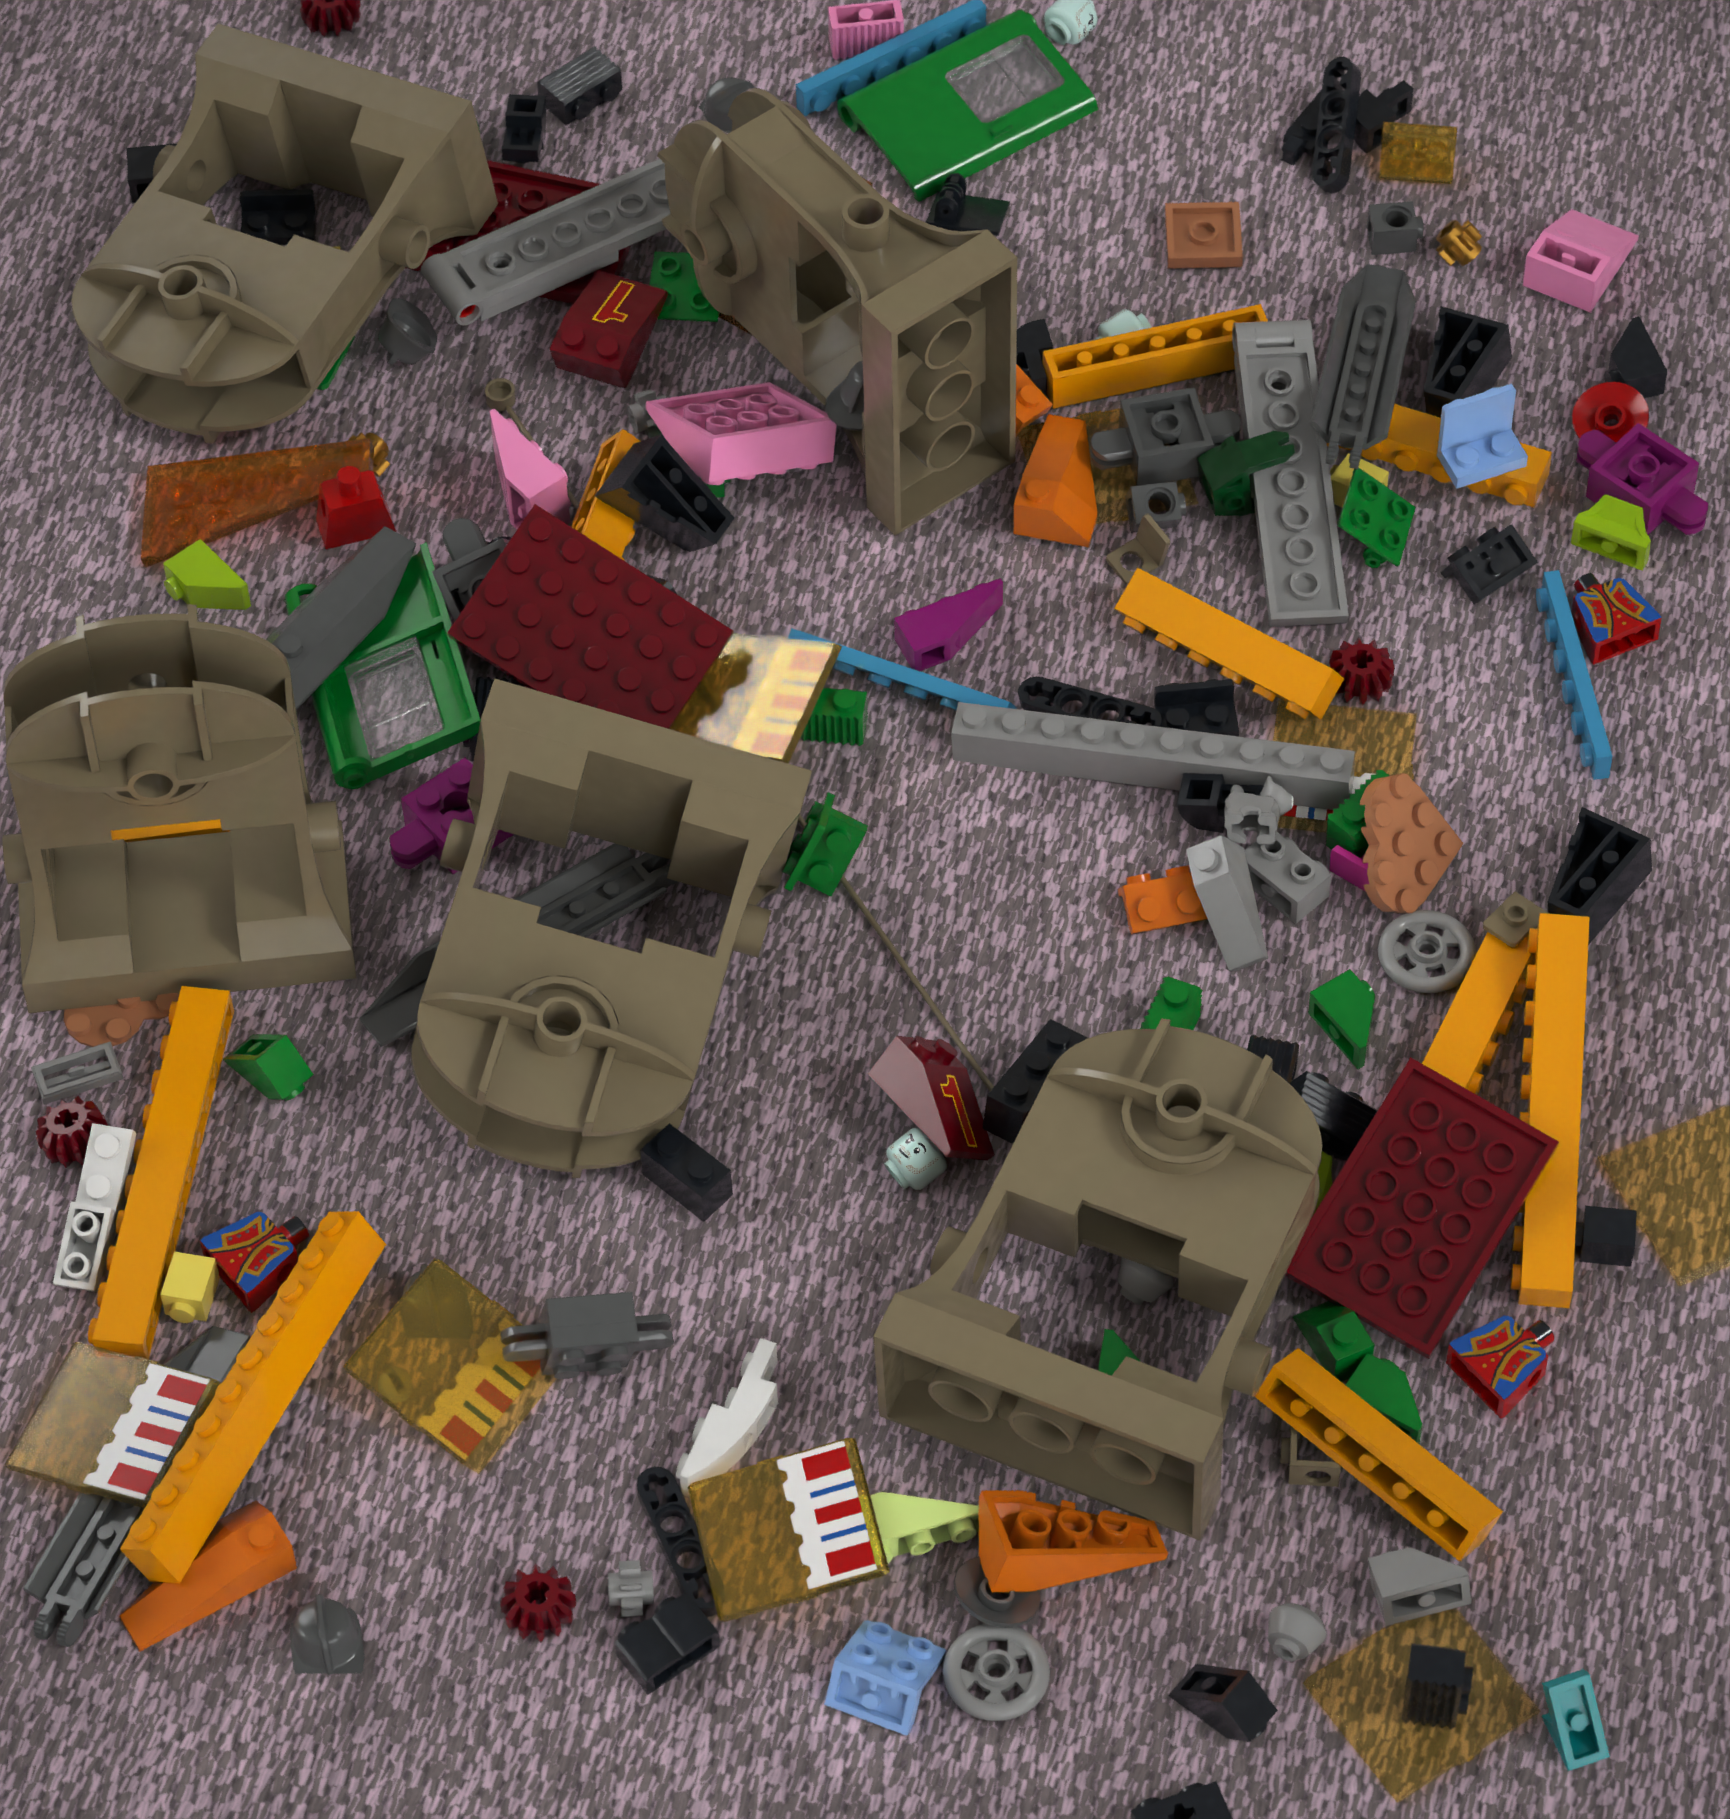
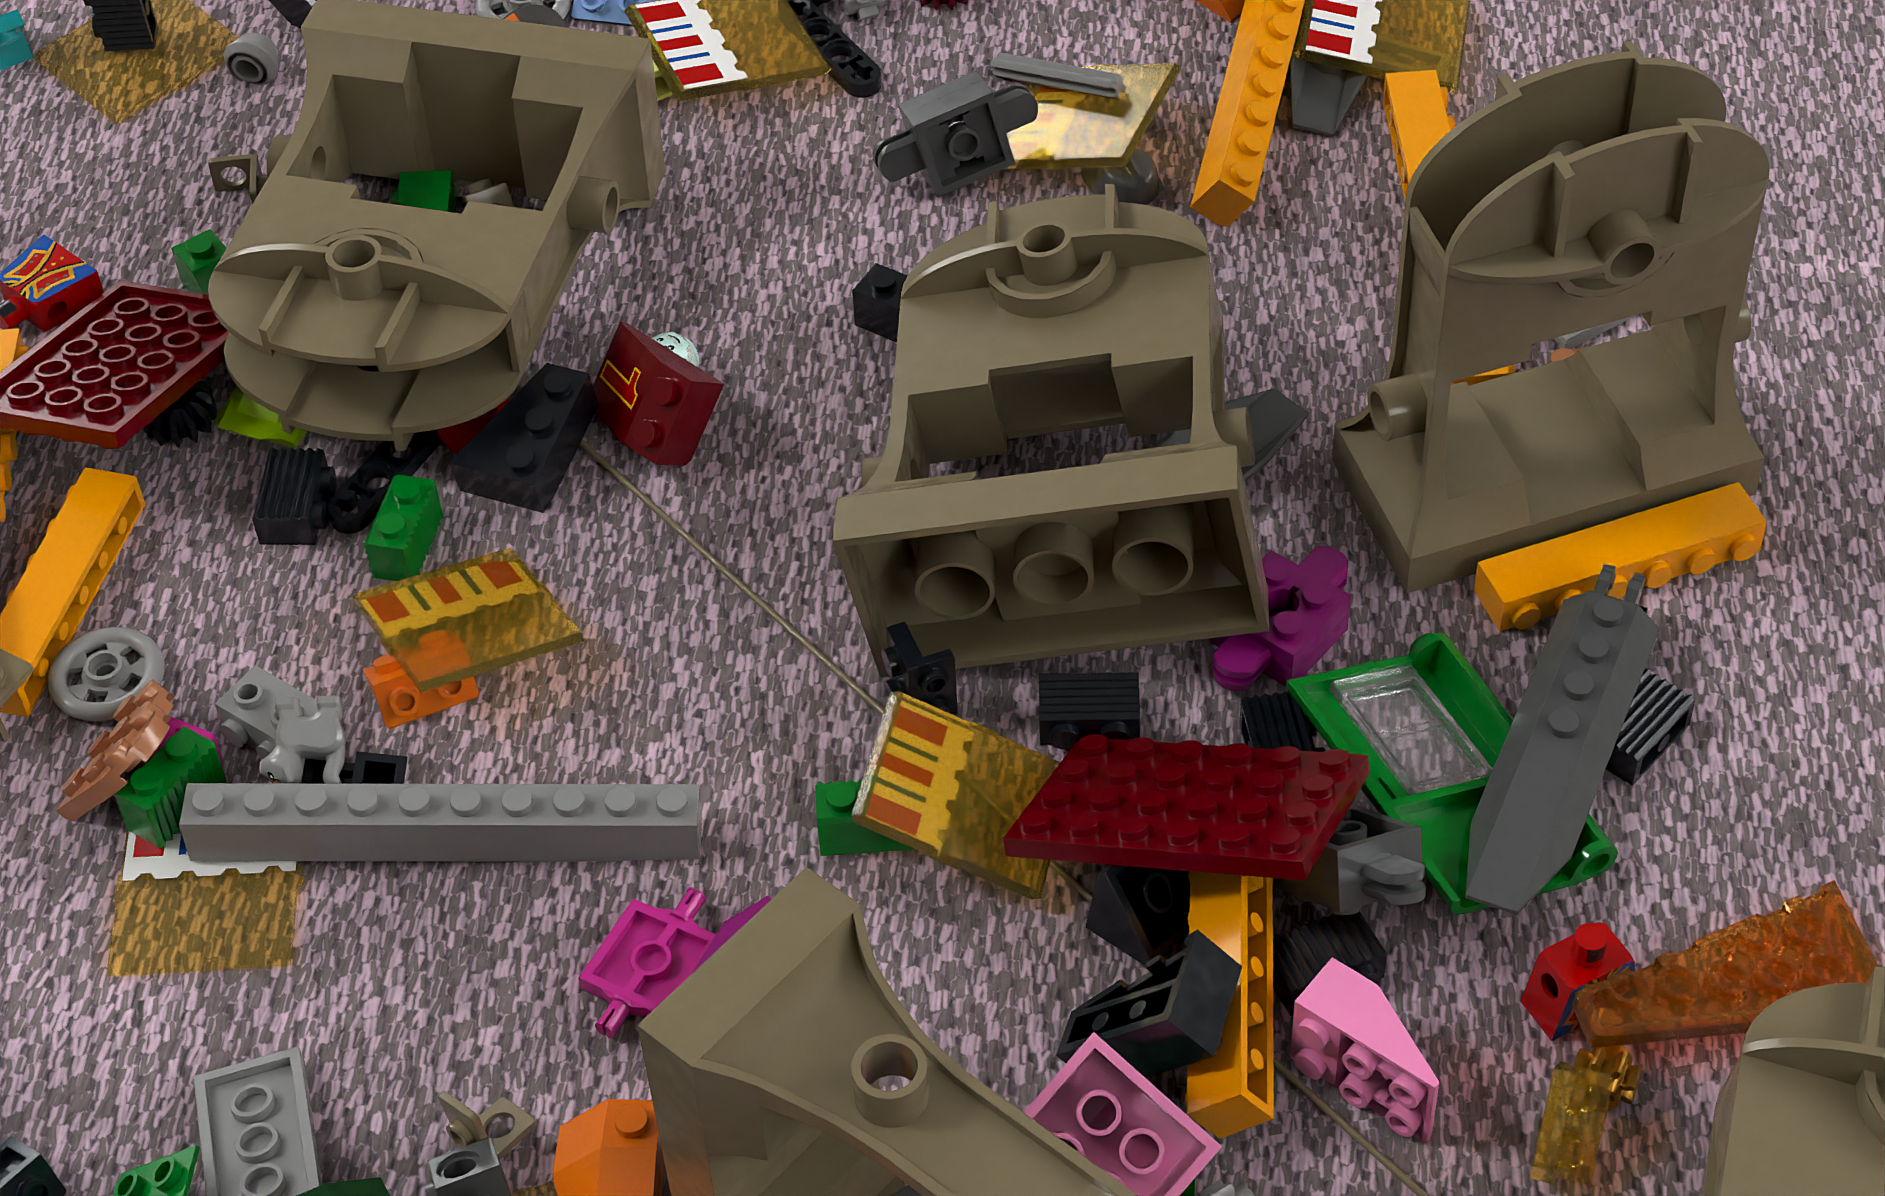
camera: 170 degrees right, 5 degrees down
(190, 1287) = (1368, 144): light yellow brick -> none
(205, 580) = (1731, 861): lime slope -> none
(255, 1255) = (1318, 177): torso -> none
(270, 1065) = (1367, 330): green slope -> none
(410, 415) = (1572, 1124): none -> clear yellow bracket
(463, 1417) = (1058, 75): none -> light grey axle
(731, 1430) = (799, 121): white slope -> none
(823, 848) = (830, 623): green bracket -> none
(915, 682) = (741, 880): dark azure plate -> none
(1008, 644) = (645, 959): none -> dark pink plate
(1093, 702) = (527, 893): black beam -> none
(1119, 922) = (466, 619): none -> clear yellow piece
(1198, 706) = (395, 915): black bracket -> none
(1228, 643) = (354, 985): light orange brick -> none
(1228, 900) = (341, 663): light grey slope -> none
(1339, 1114) = (221, 455): black brick -> none
(1345, 1014) = (201, 579): green slope -> none
(1364, 670) = (177, 1000): dark red gear -> none
(1378, 1454) = (159, 168): light orange brick -> none
(1387, 1391) = (161, 229): green slope -> none
(1416, 1584) = (139, 98): light grey slope -> none

